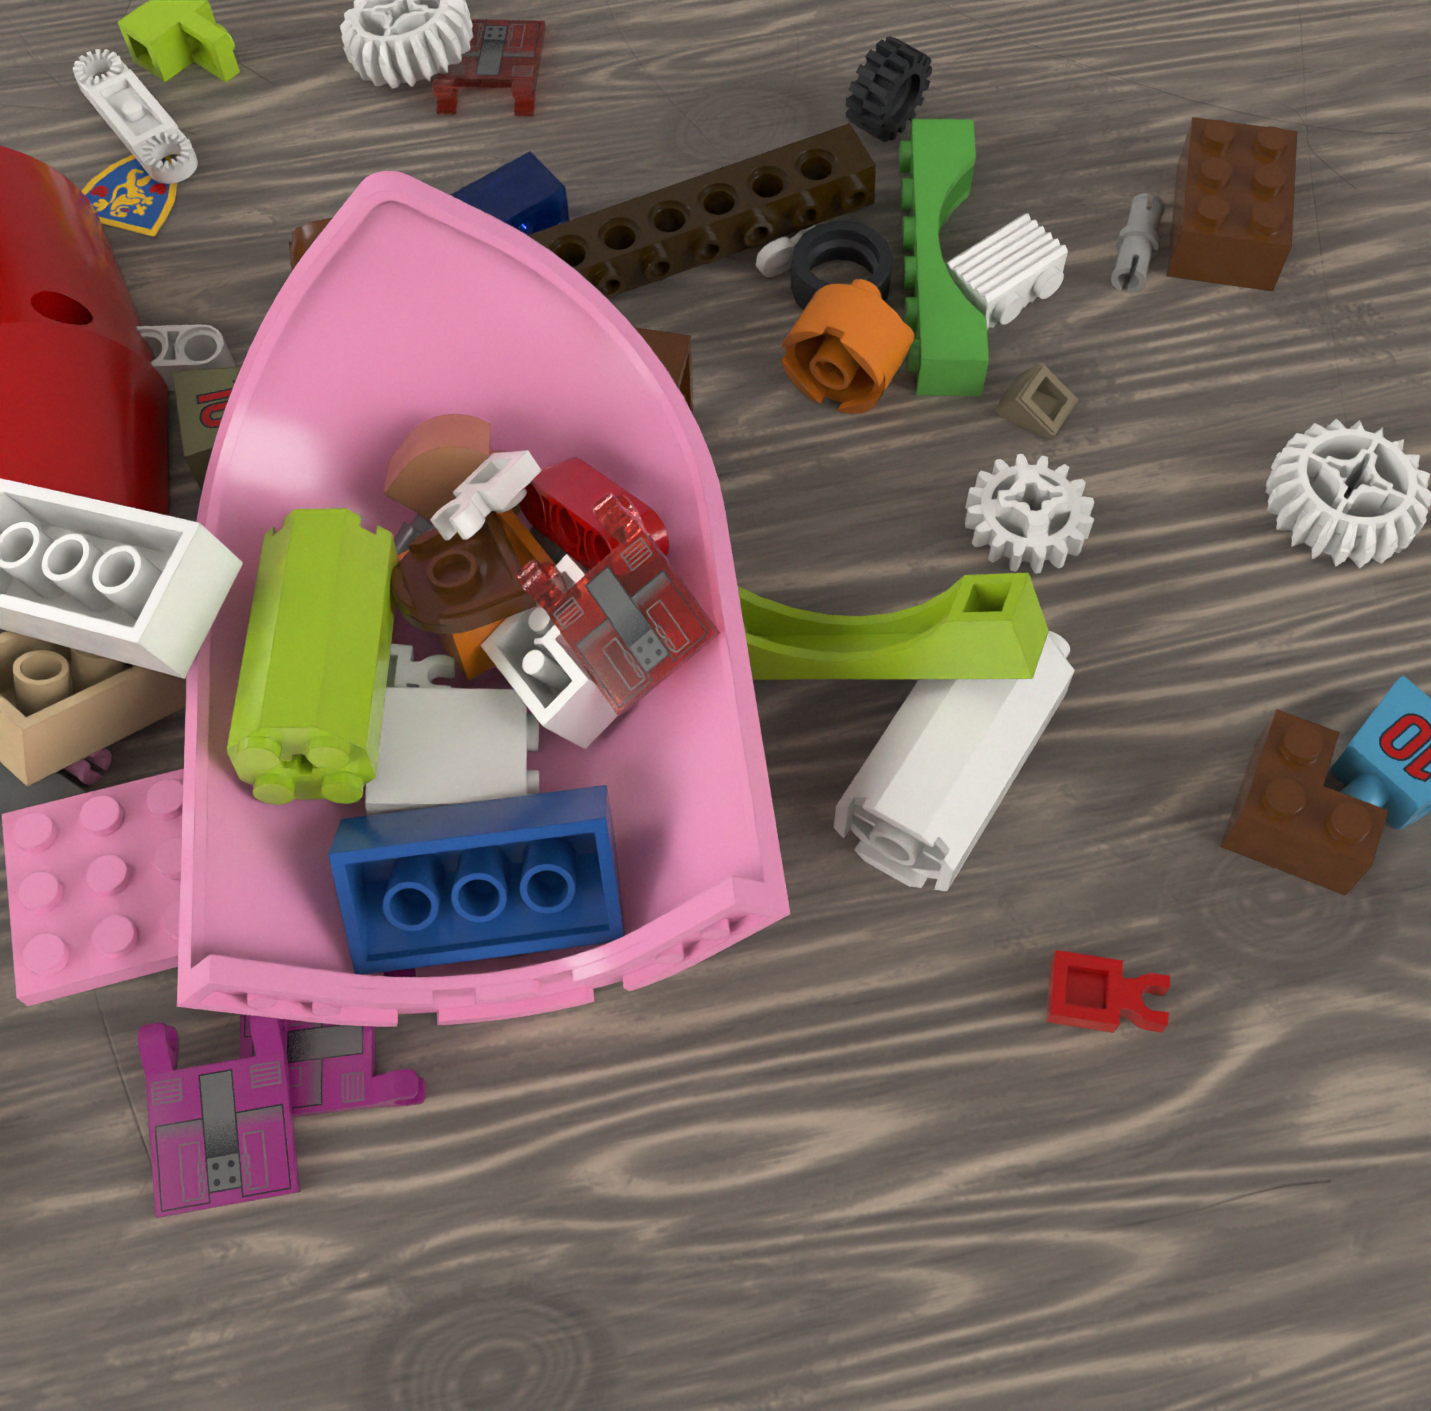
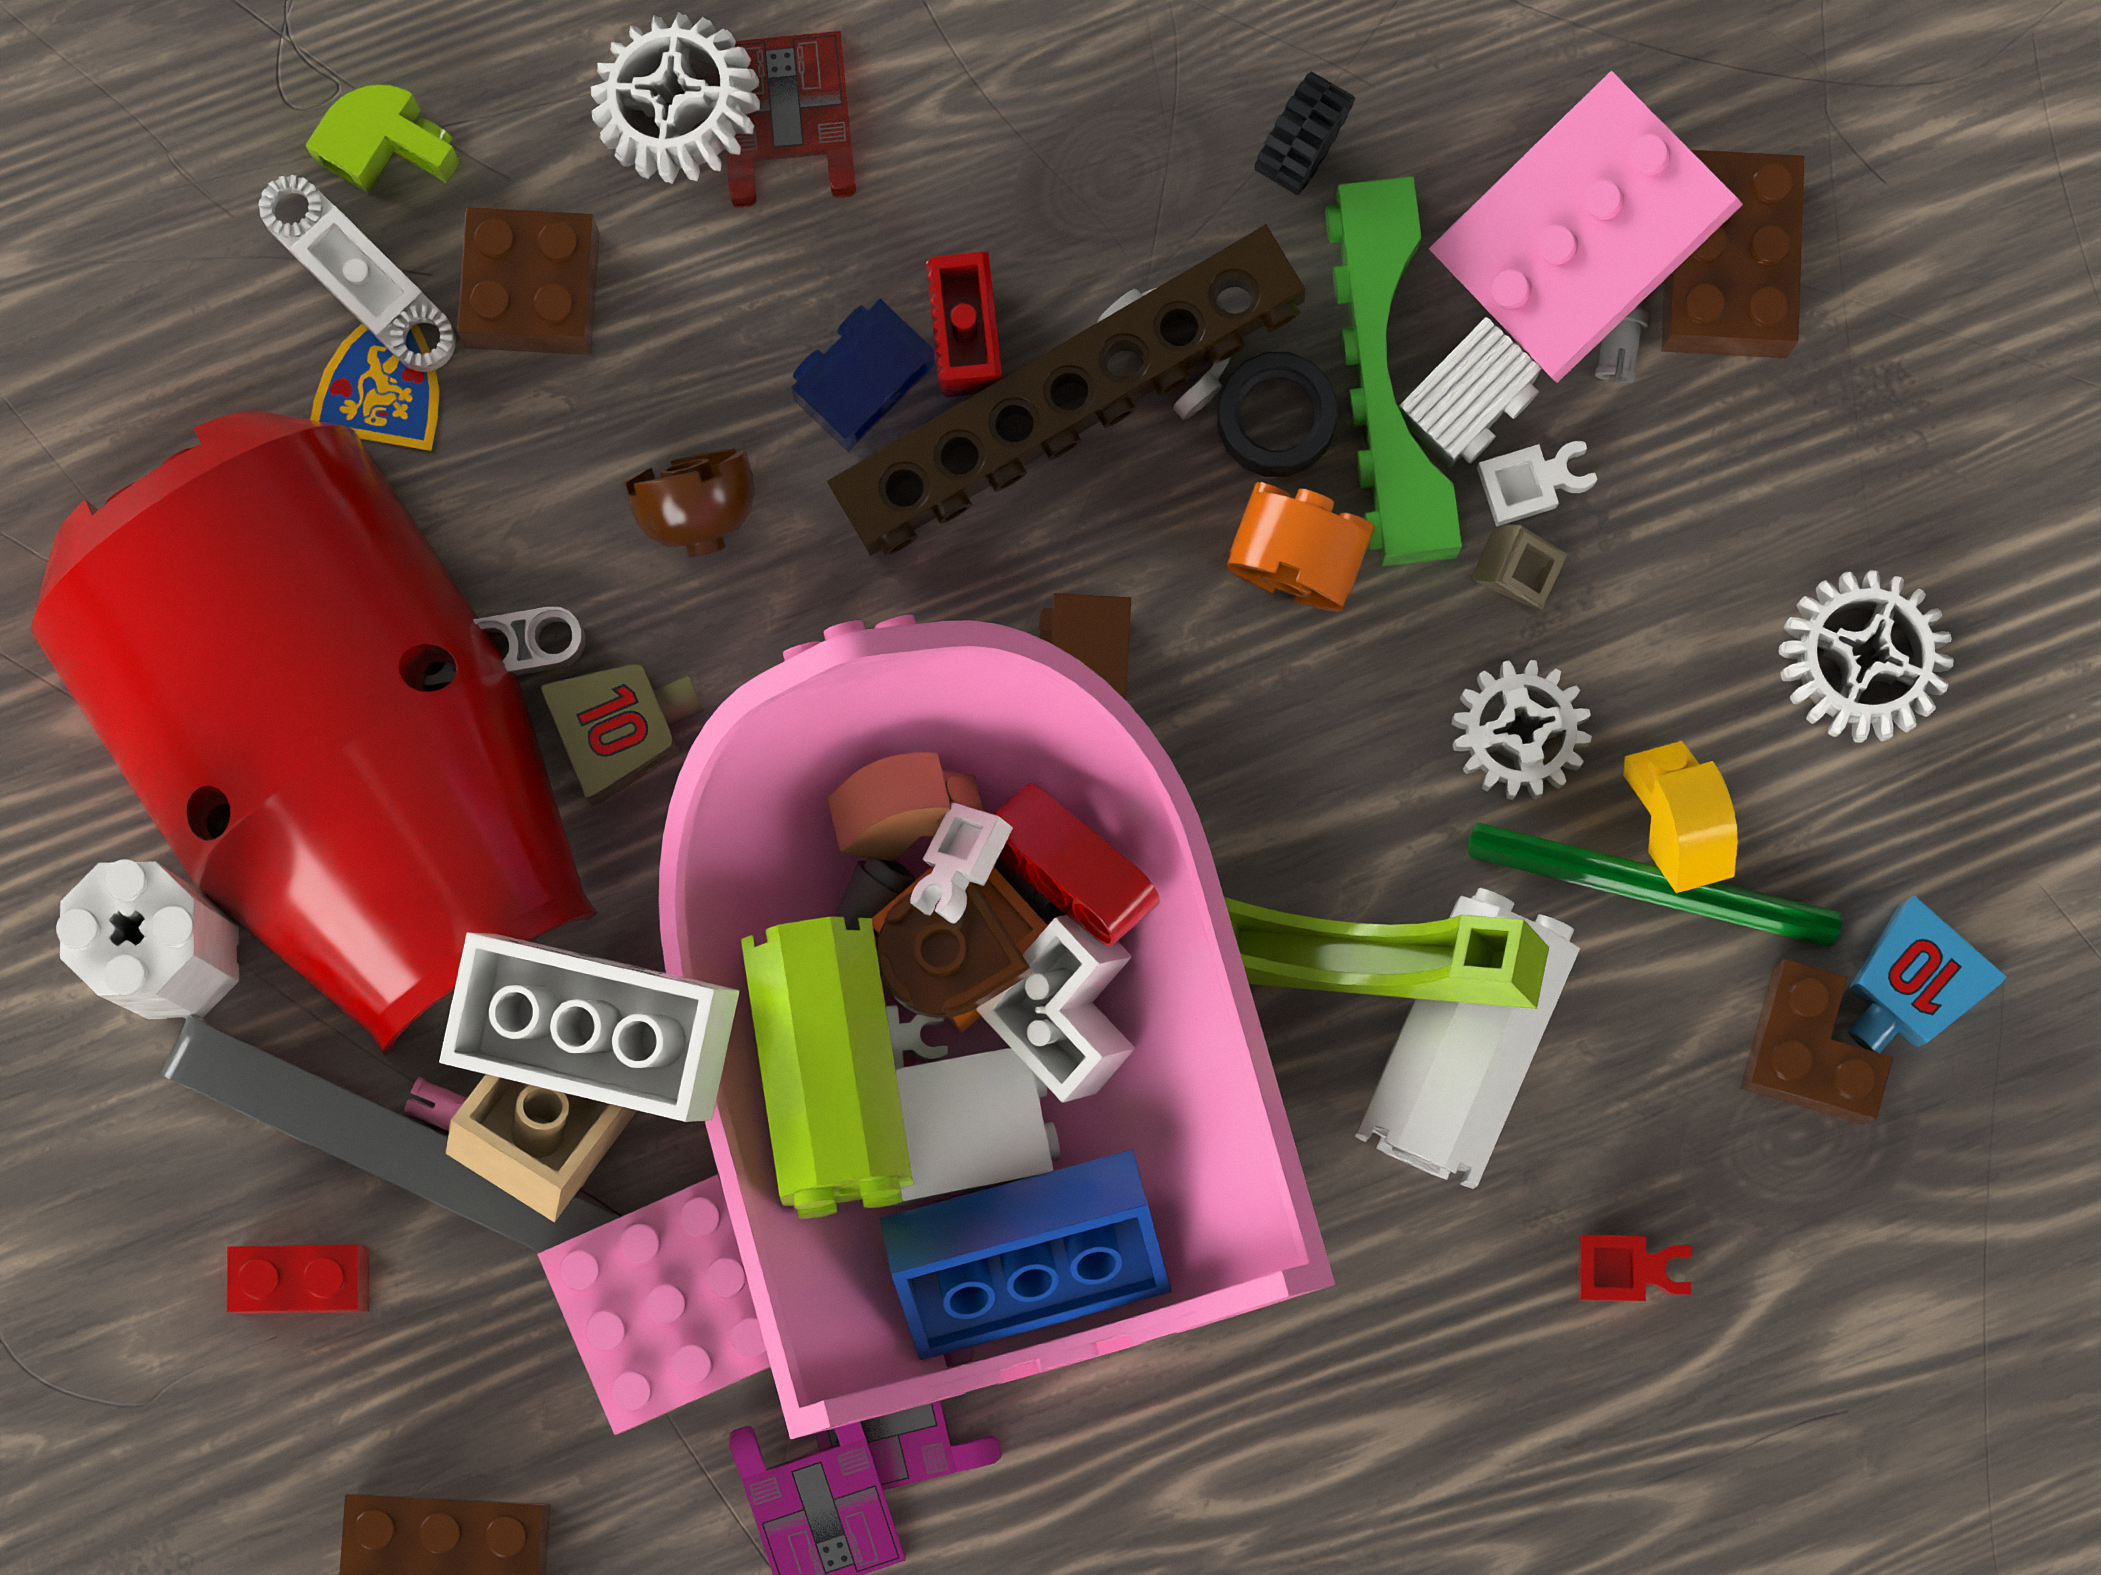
camera: 10 degrees left, 20 degrees up
(260, 126) = (528, 281): none -> reddish brown brick
(593, 166) = (964, 323): none -> red brick
(628, 615) = (1130, 989): clear red flag -> none
(1052, 340) = (1525, 483): none -> white plate
(1115, 161) = (1585, 226): none -> bright pink plate
(1182, 666) = (1650, 885): none -> green axle
(1185, 590) = (1690, 812): none -> yellow brick

